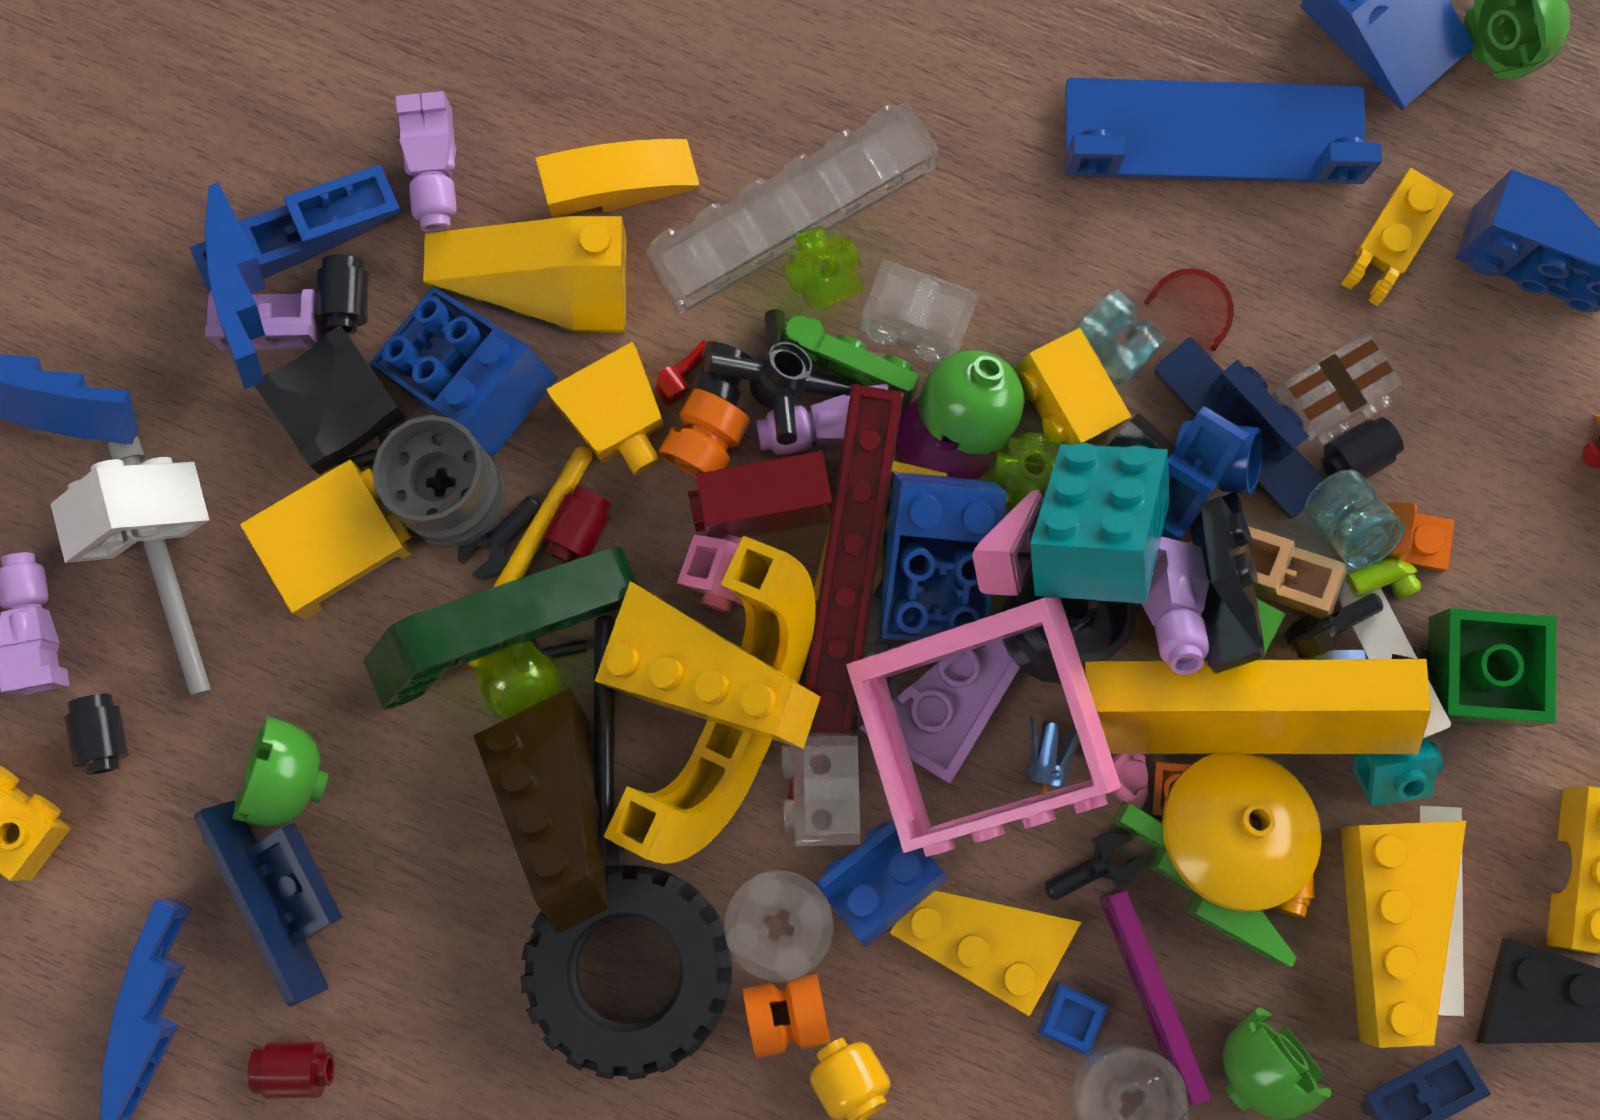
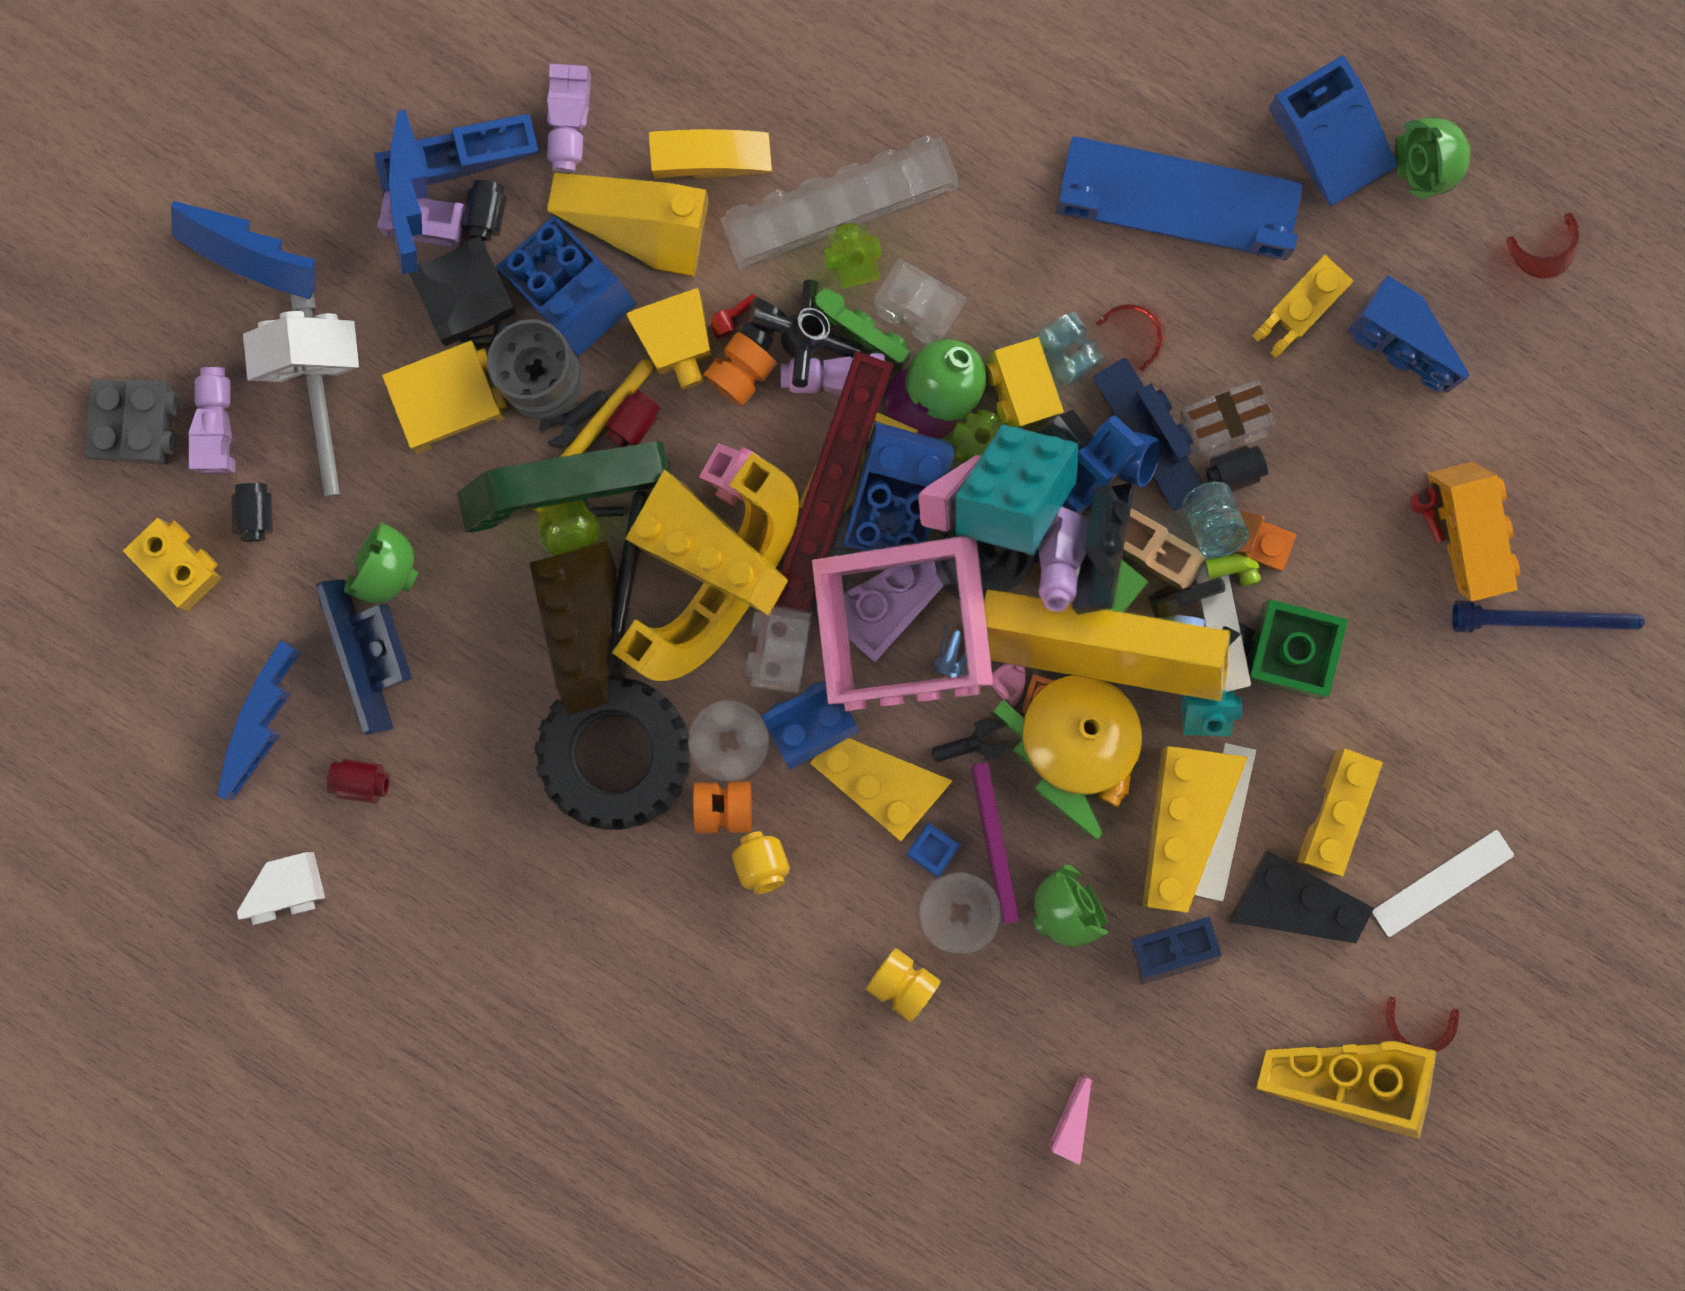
camera: 15 degrees right, 5 degrees up
(762, 497) = (773, 424): dark red brick -> none

